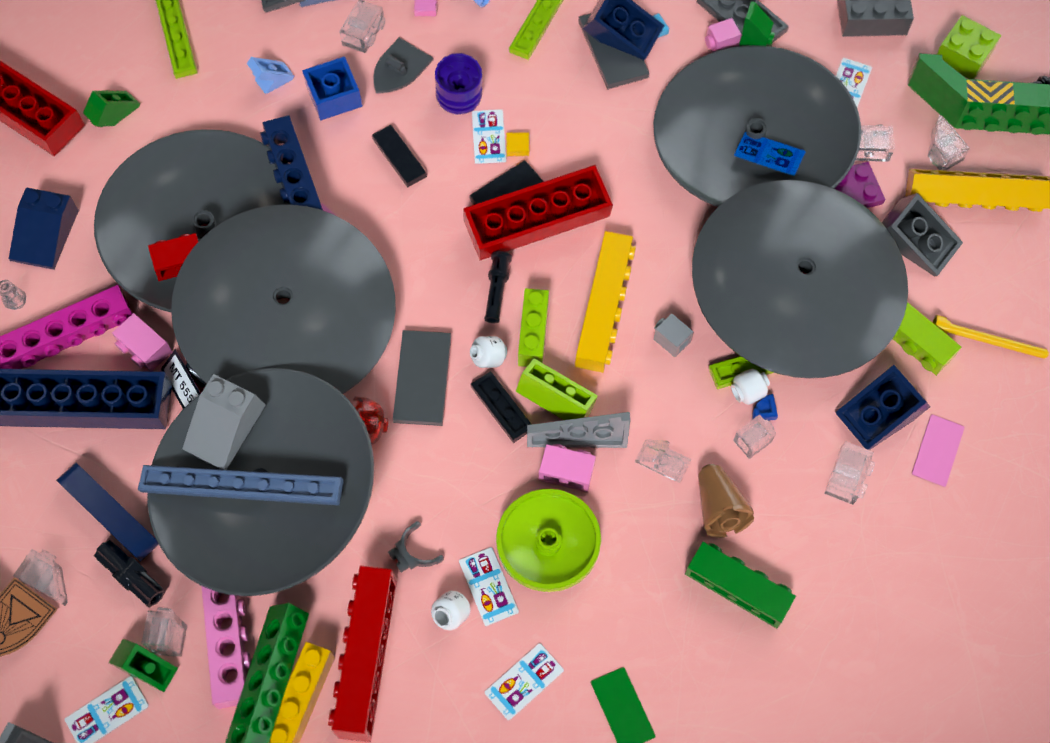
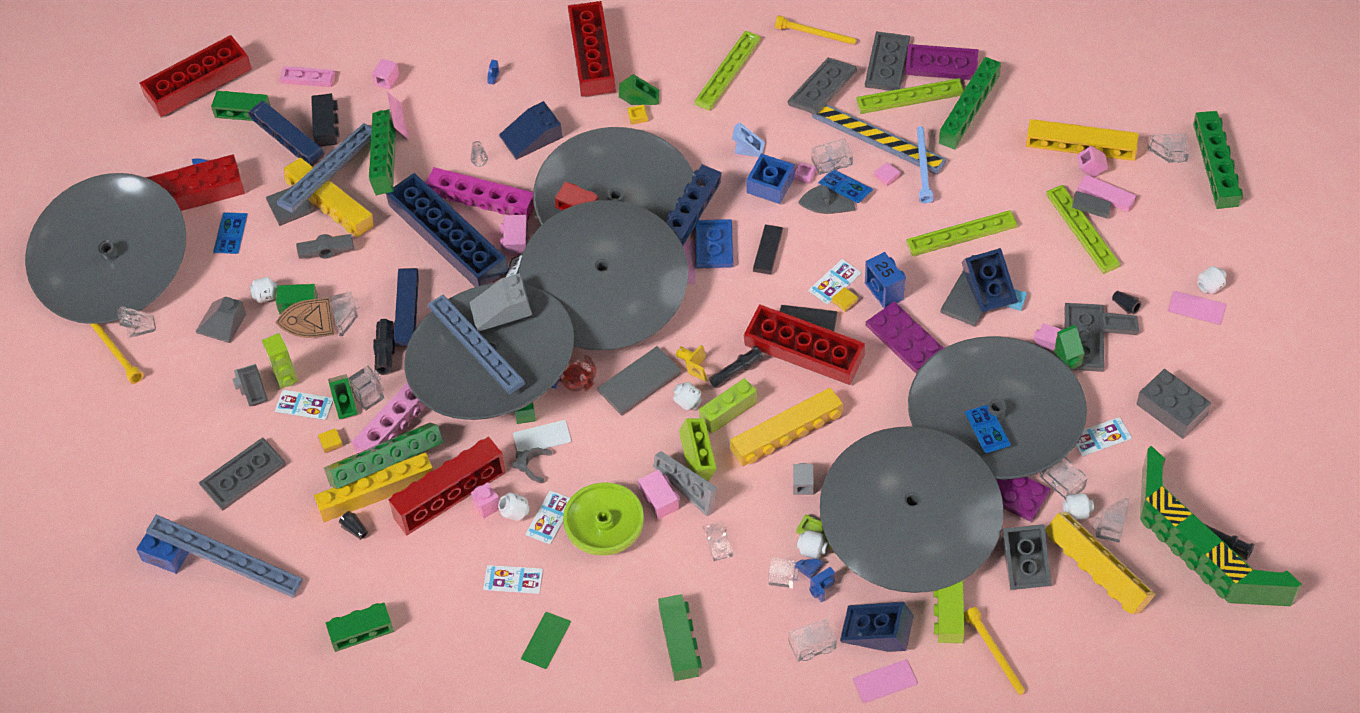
camera: 50 degrees right, 10 degrees down
(37, 694) = (280, 360): none -> lime brick
(131, 130) = (637, 114): none -> yellow tile
(180, 723) = (330, 440): none -> yellow tile
(345, 191) = (714, 244): none -> blue tile
(354, 59) = (804, 173): none -> bright pink tile
(391, 516) = (542, 436): none -> white sticker
(402, 43) = (845, 186): none -> clear blue sticker
(414, 630) = (485, 500): none -> bright pink brick
(451, 313) = (693, 360): none -> yellow bracket
(458, 83) = (845, 234): dark purple wheel -> none
(501, 406) = (664, 431): black tile -> none
(540, 96) = (885, 279): none -> blue brick
(605, 134) = (903, 336): none -> magenta plate
(722, 503) = (717, 587): medium nougat cone -> none
(795, 415) = (820, 582): none -> blue bracket
(907, 156) = (1078, 506): none -> white head
(968, 47) = (1207, 477): lime brick -> none

